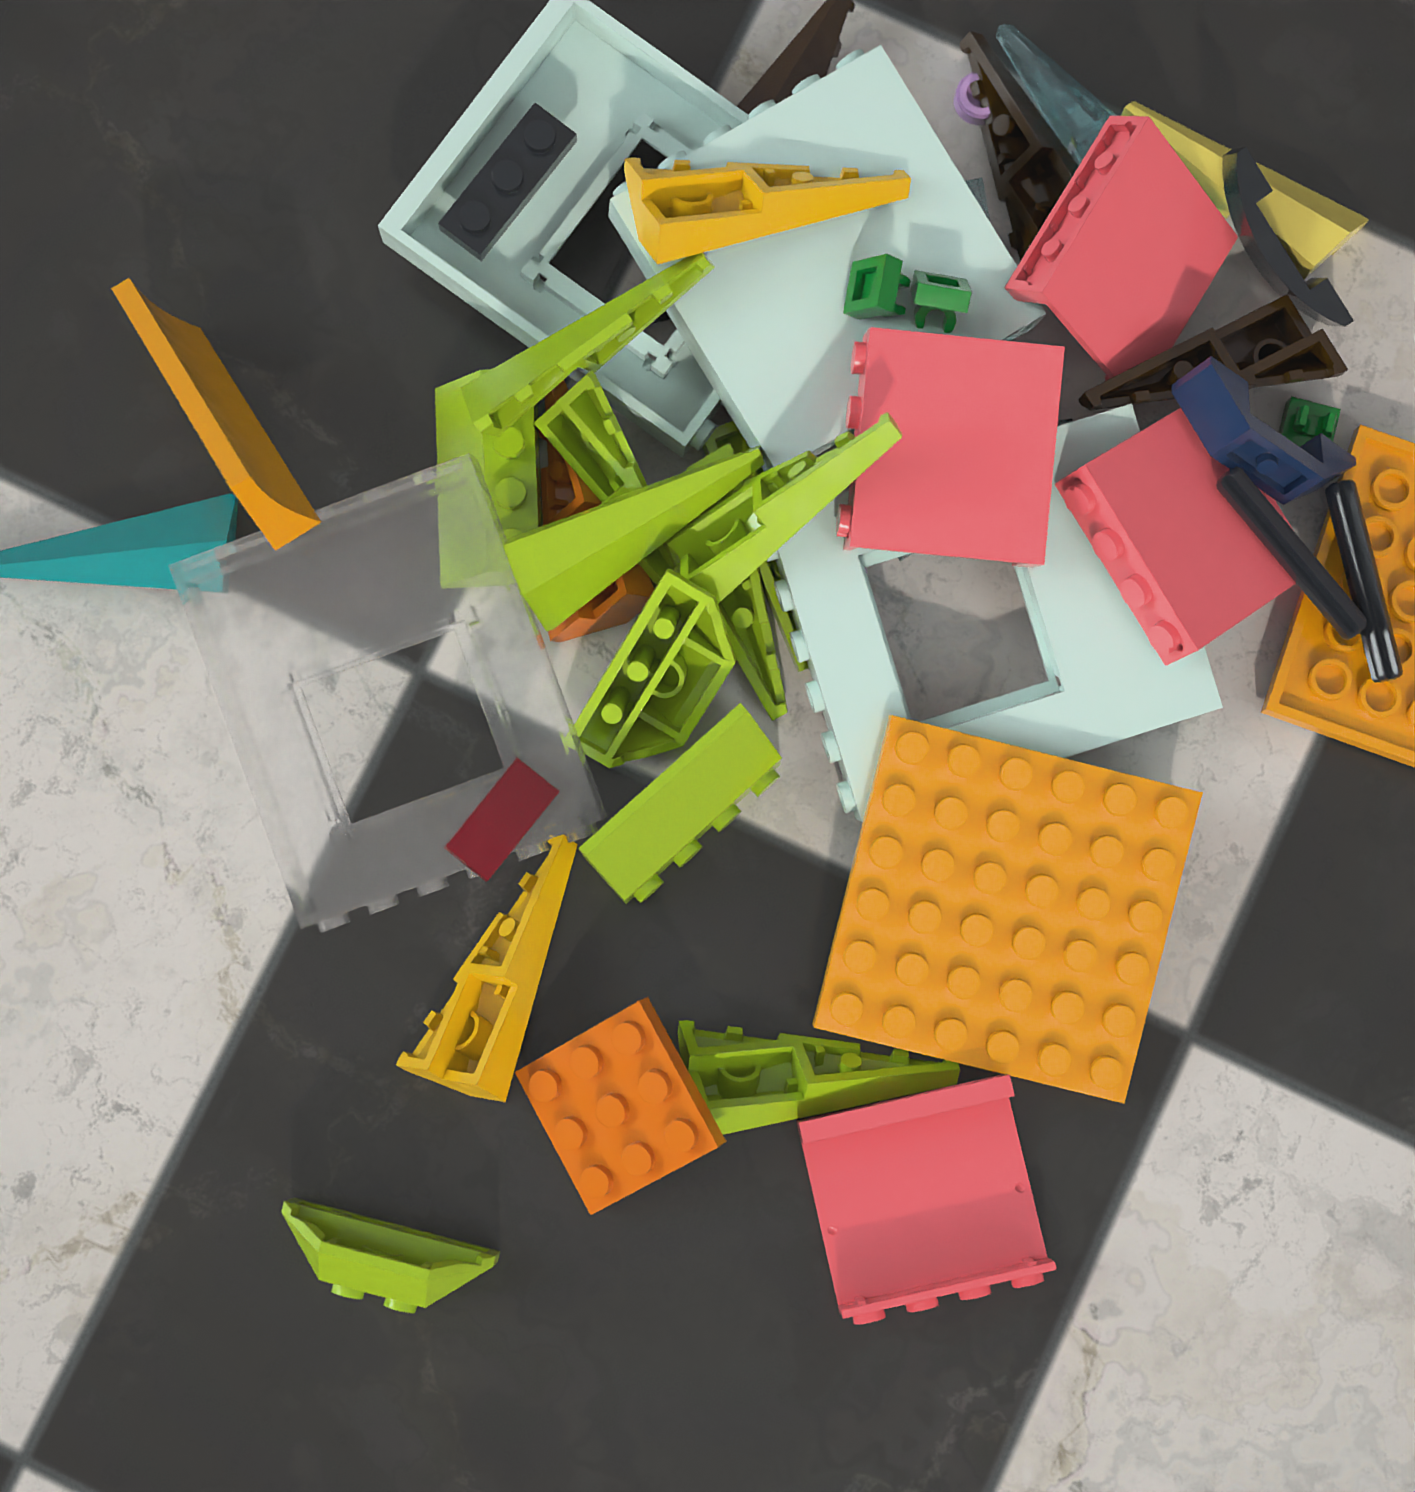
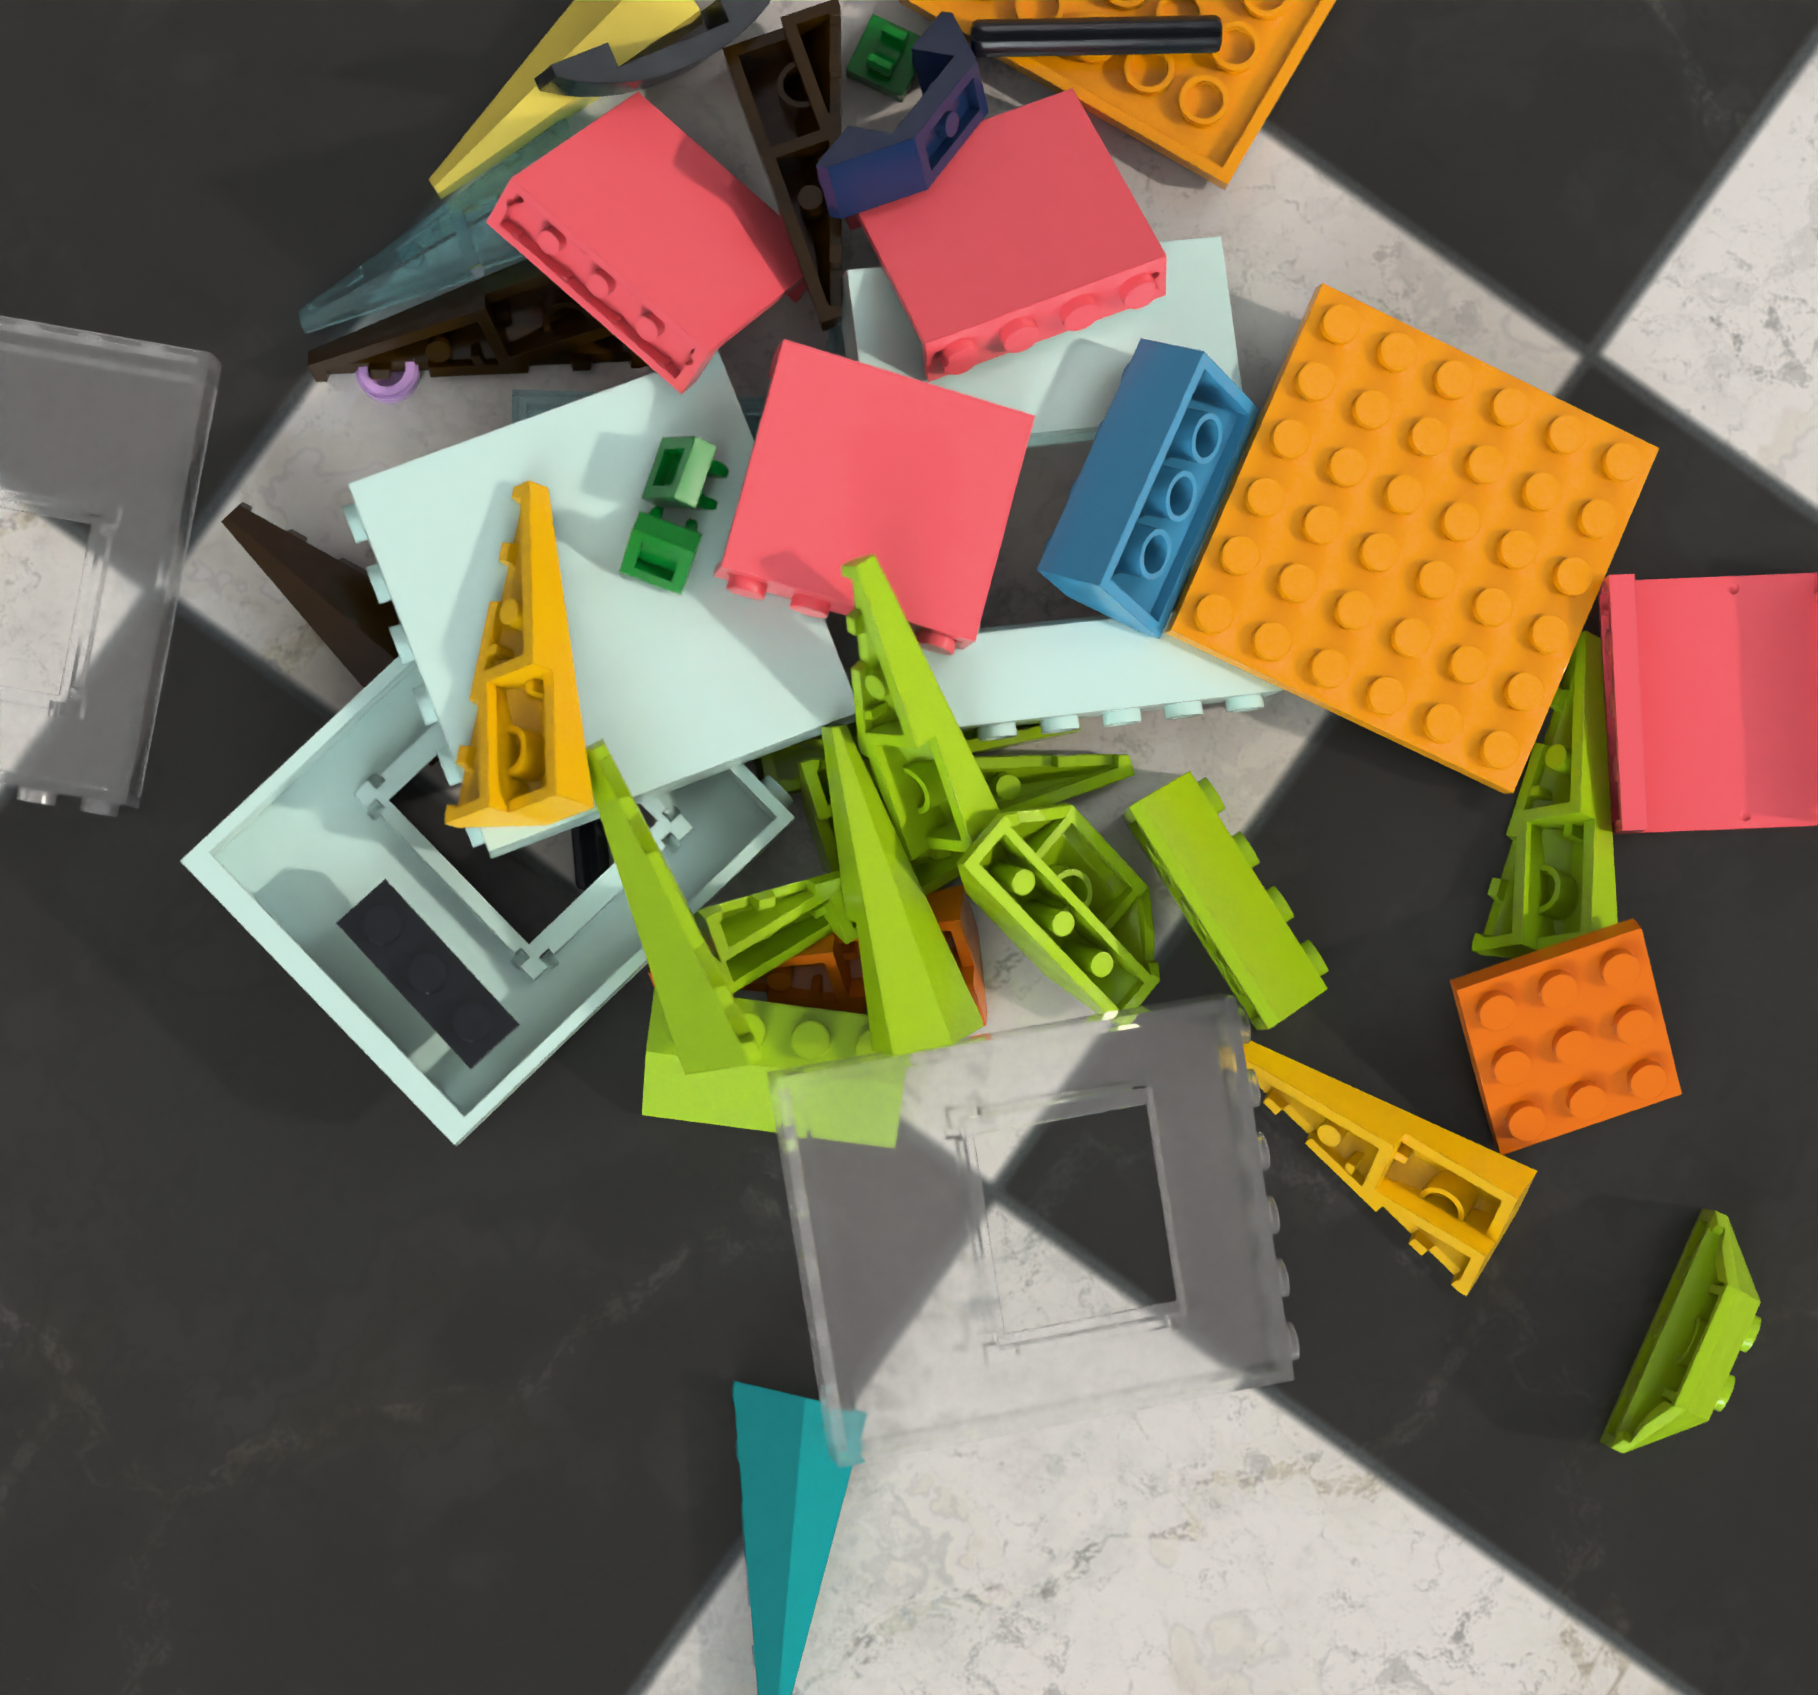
camera: 80 degrees left, 5 degrees up
(221, 419) = (660, 1377): light orange arch -> none
(501, 819) = (1219, 1114): dark red slope -> none
(1006, 677) = (1149, 486): none -> dark azure slope
(1291, 553) = (1055, 117): black axle -> none

